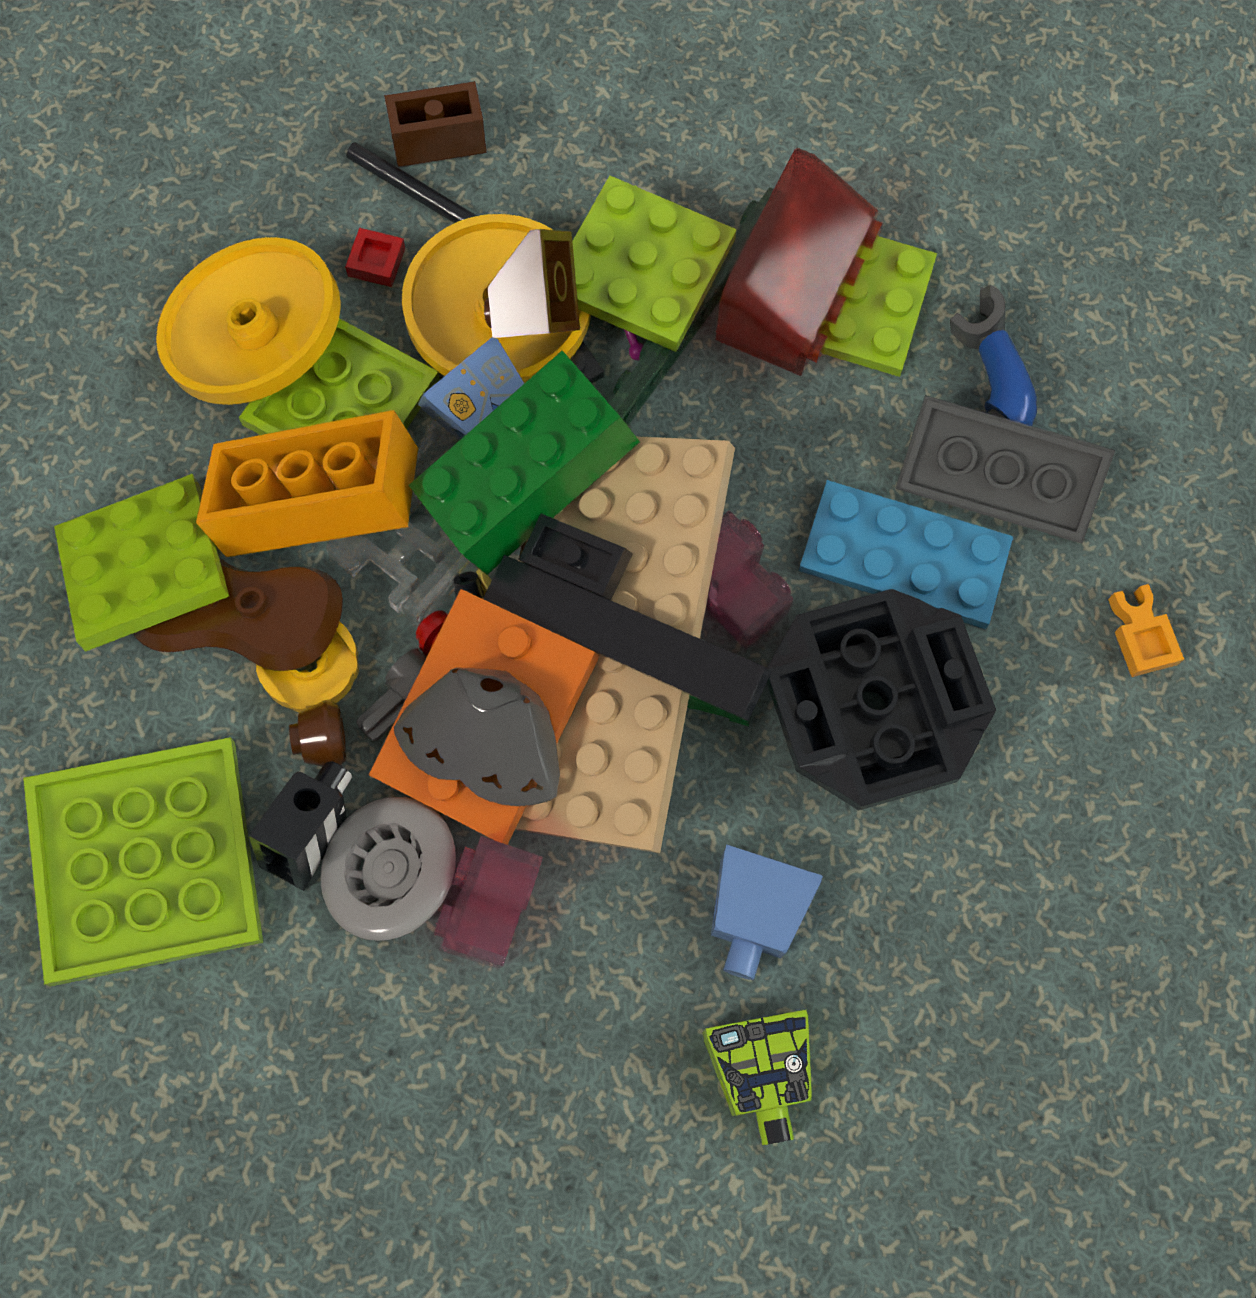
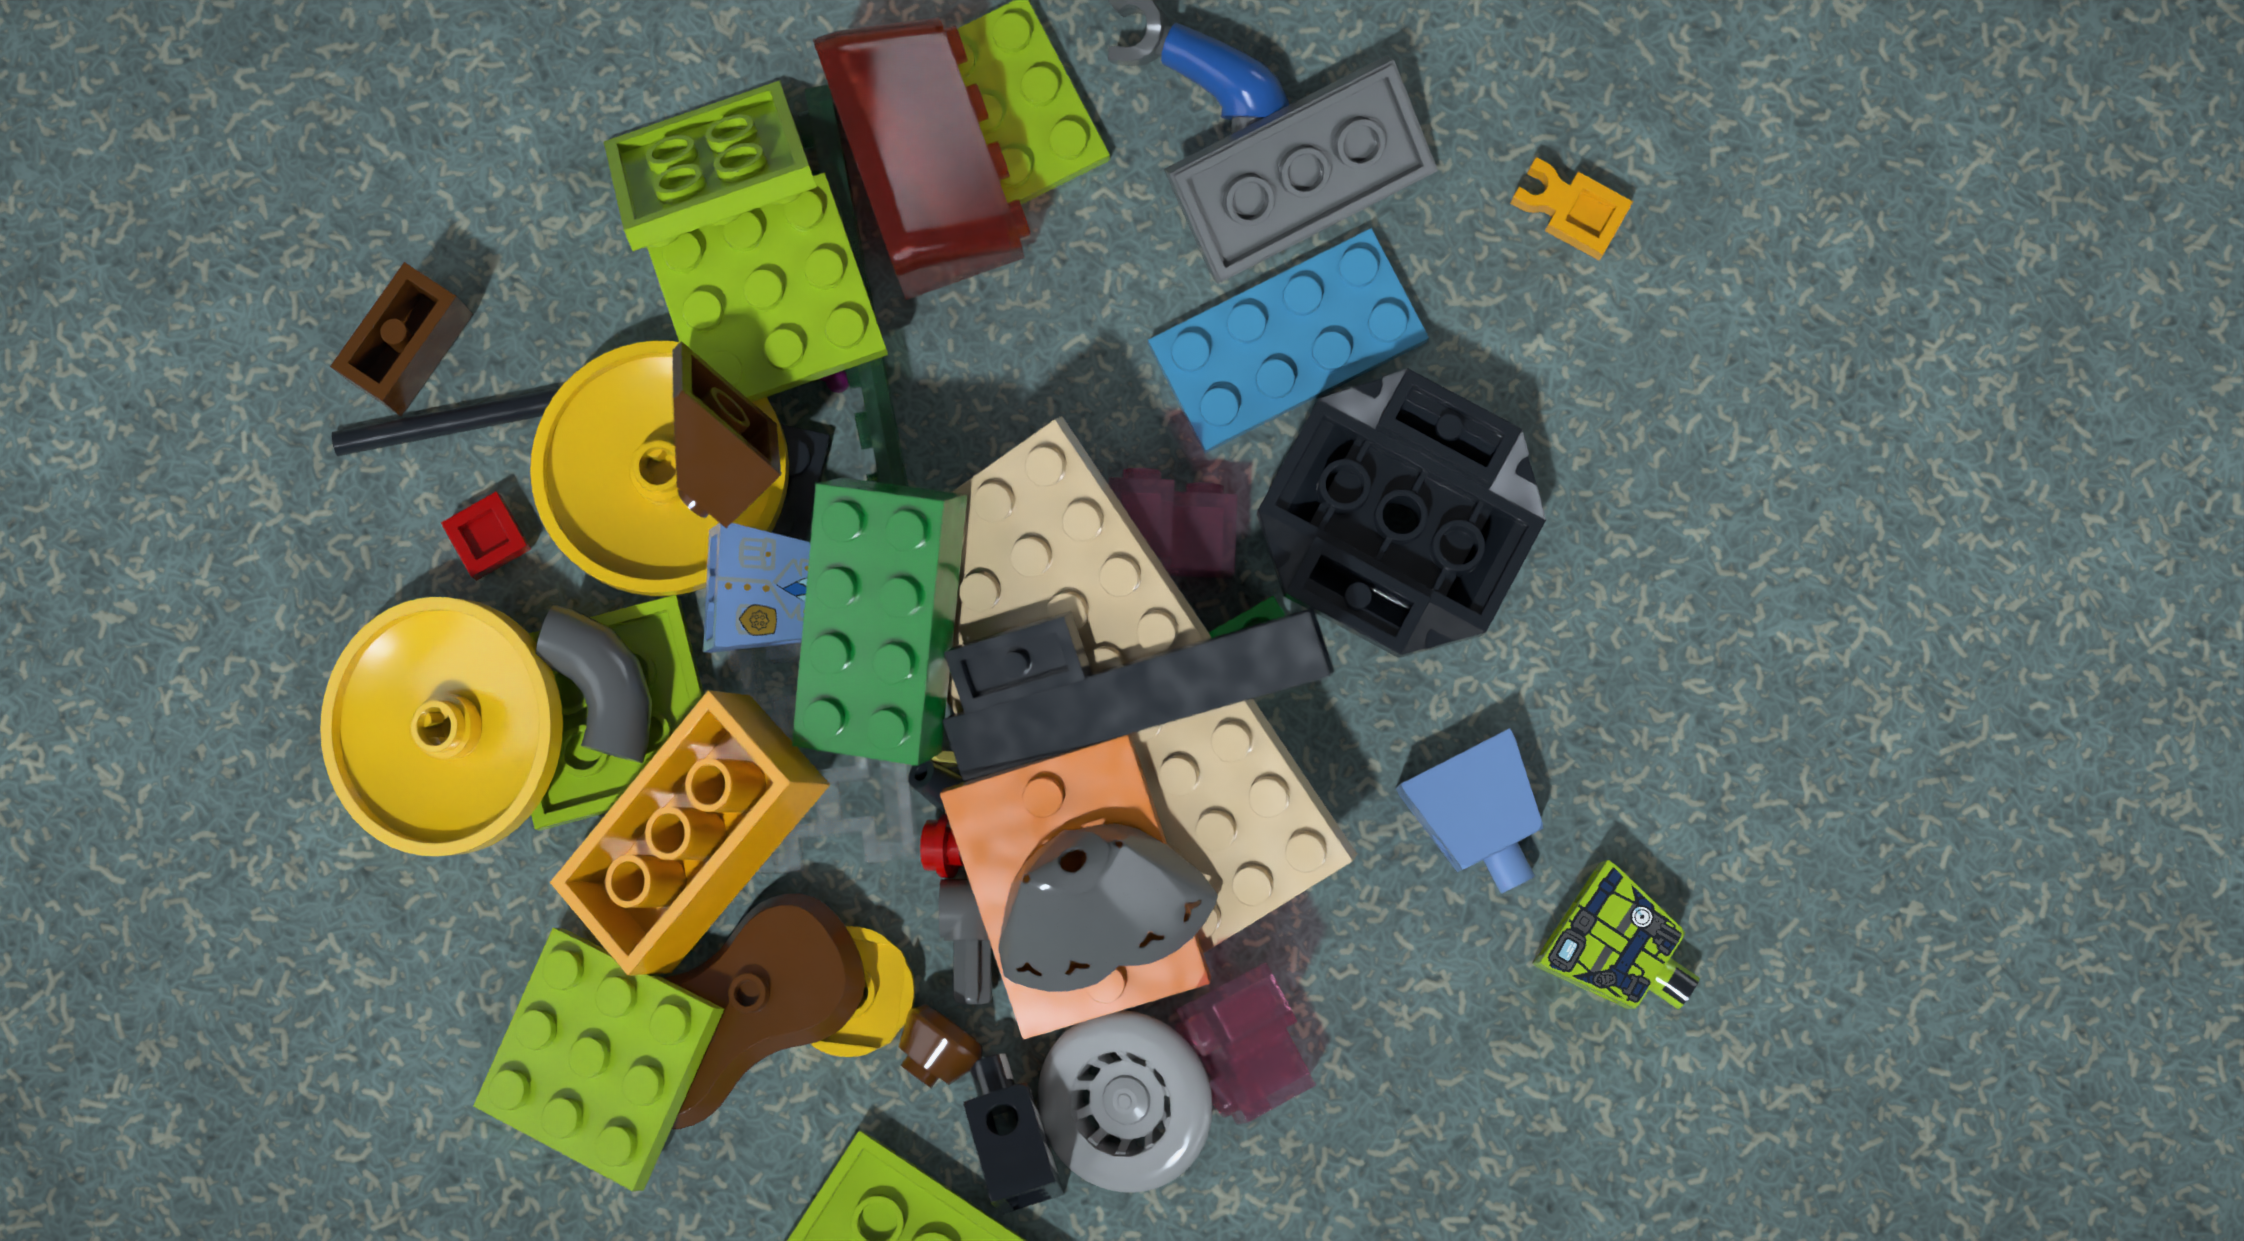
camera: 40 degrees left, 10 degrees up
(356, 369) = (607, 676): none -> dark grey cylinder
(677, 177) = (707, 166): none -> lime plate

